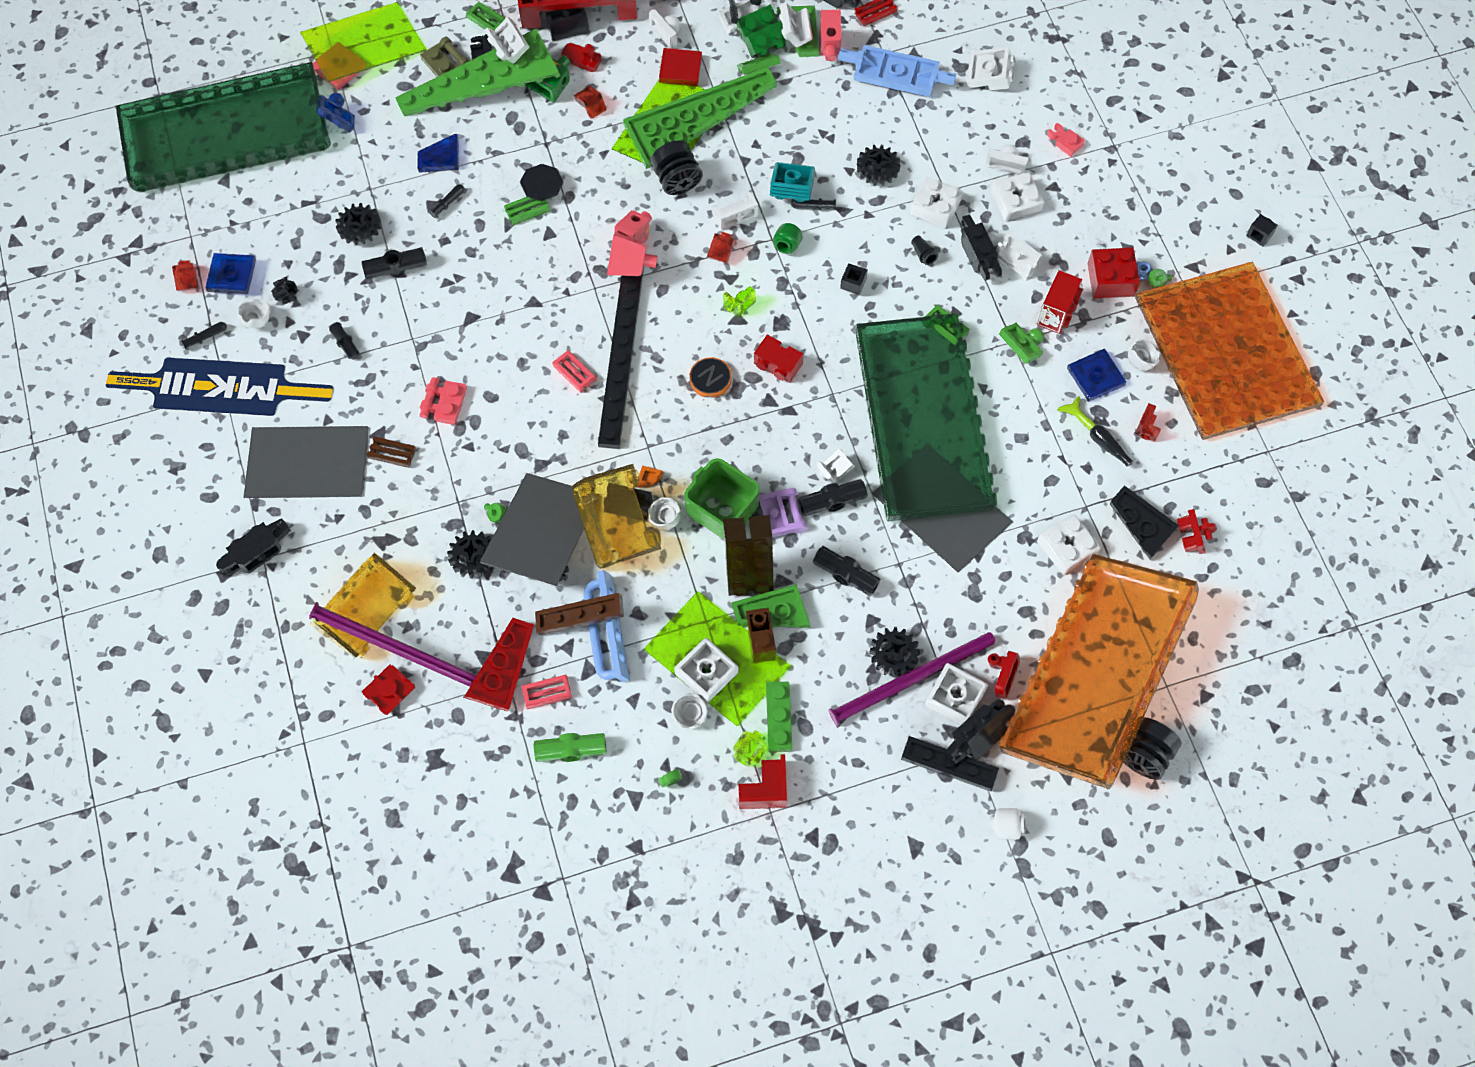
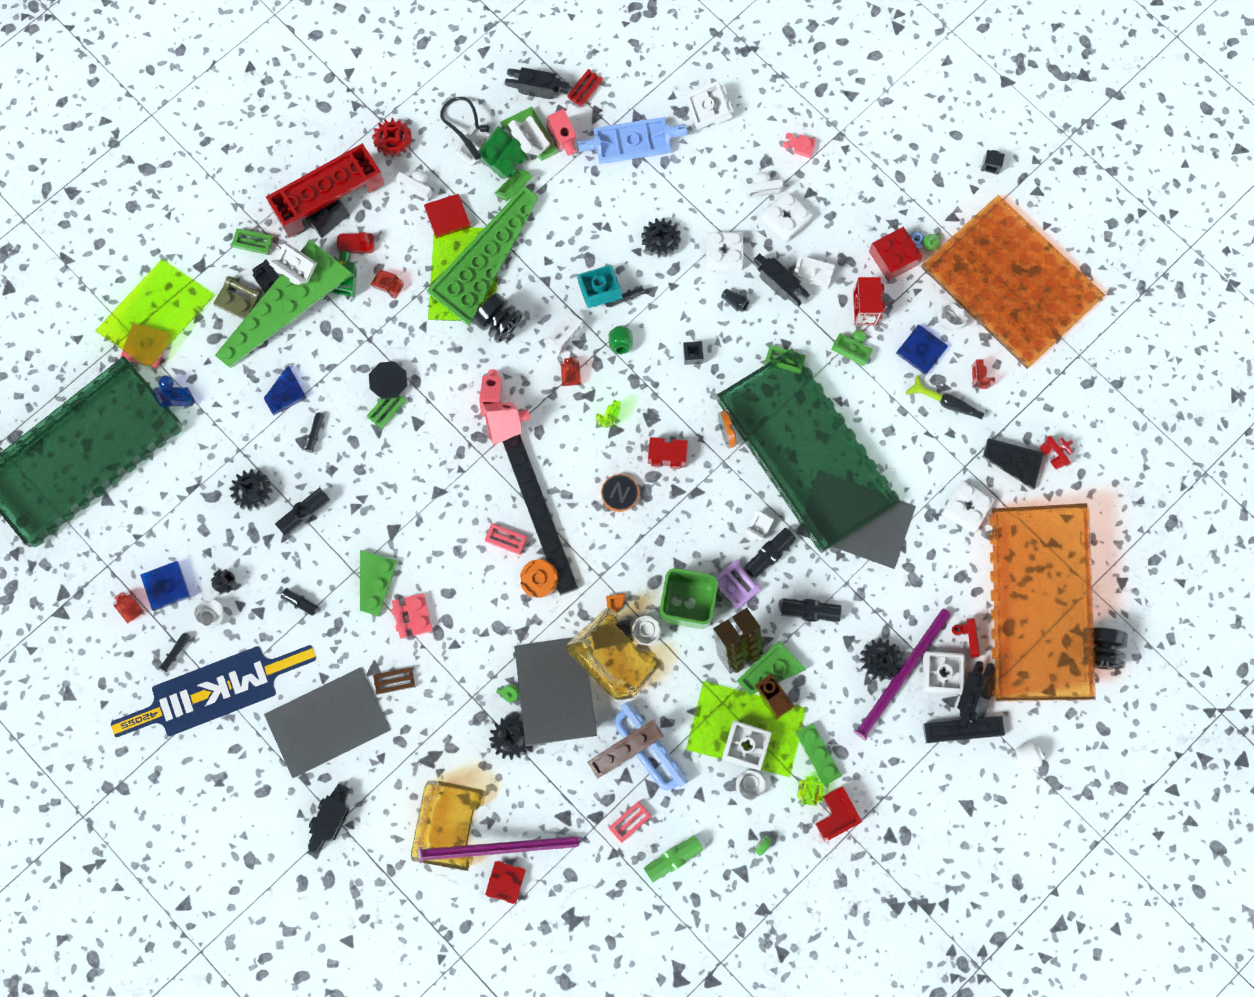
camera: 30 degrees left, 10 degrees up
(425, 355) = (375, 580): none -> bright green wing
(501, 670) = (587, 824): red wing -> none
(585, 419) = (539, 578): none -> orange tile
(849, 360) = (726, 429): none -> orange tile

